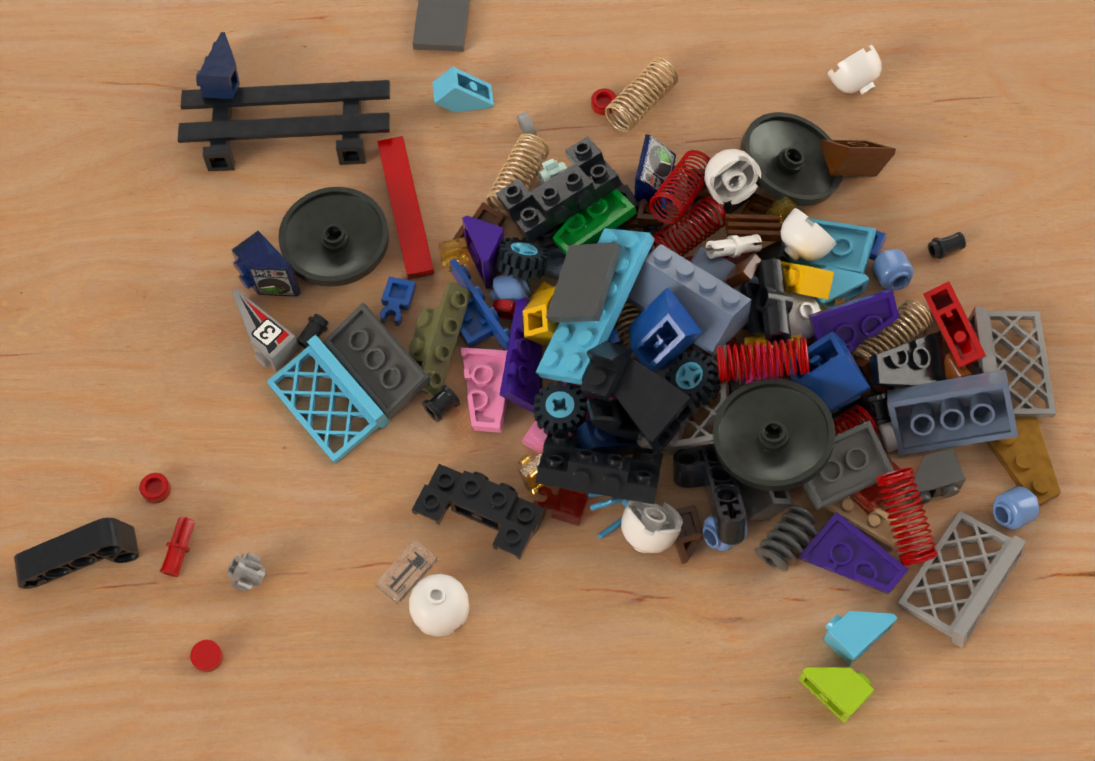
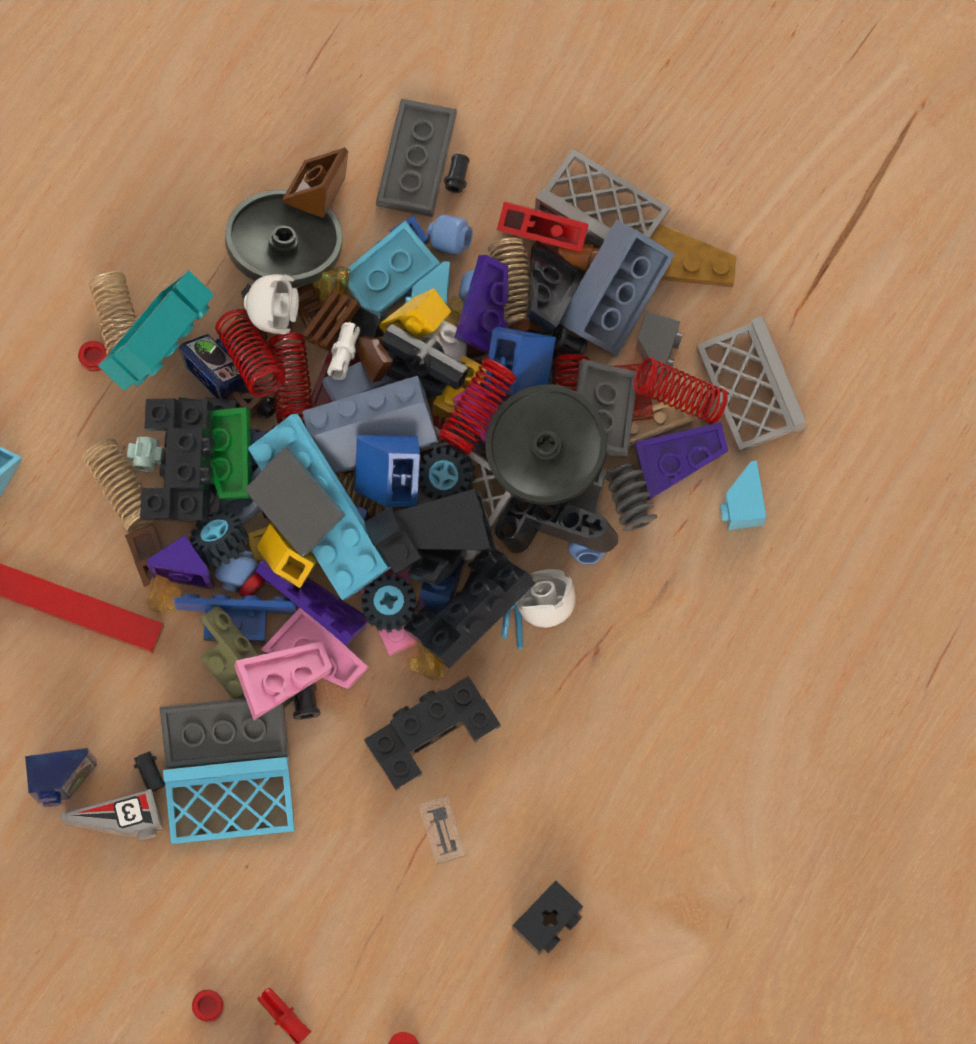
camera: 60 degrees left, 10 degrees up
(246, 572) = (352, 968): light grey gear -> none
(334, 236) = (66, 691): pearl dark grey dish -> none
(373, 689) = (530, 924): none -> black brick
(397, 296) = (168, 673): blue plate -> none
(438, 604) = (491, 821): white cylinder -> none
(443, 365) = (280, 675): none -> bright pink wing
(526, 124) = (70, 442): light grey tile -> none
(565, 506) = (475, 660): clear red plate -> none
(648, 114) = (157, 331): none -> teal piece
(690, 533) = (570, 569): reddish brown slope -> none
(805, 238) = (376, 286): white cylinder -> none
(838, 688) = (781, 547): lime slope -> none
(857, 72) = (235, 117): white cylinder -> none
(887, 437) = (598, 354): light grey tile -> none
(935, 211) = (416, 157): none -> dark grey tile
(1016, 508) = (726, 300): medium blue head -> none

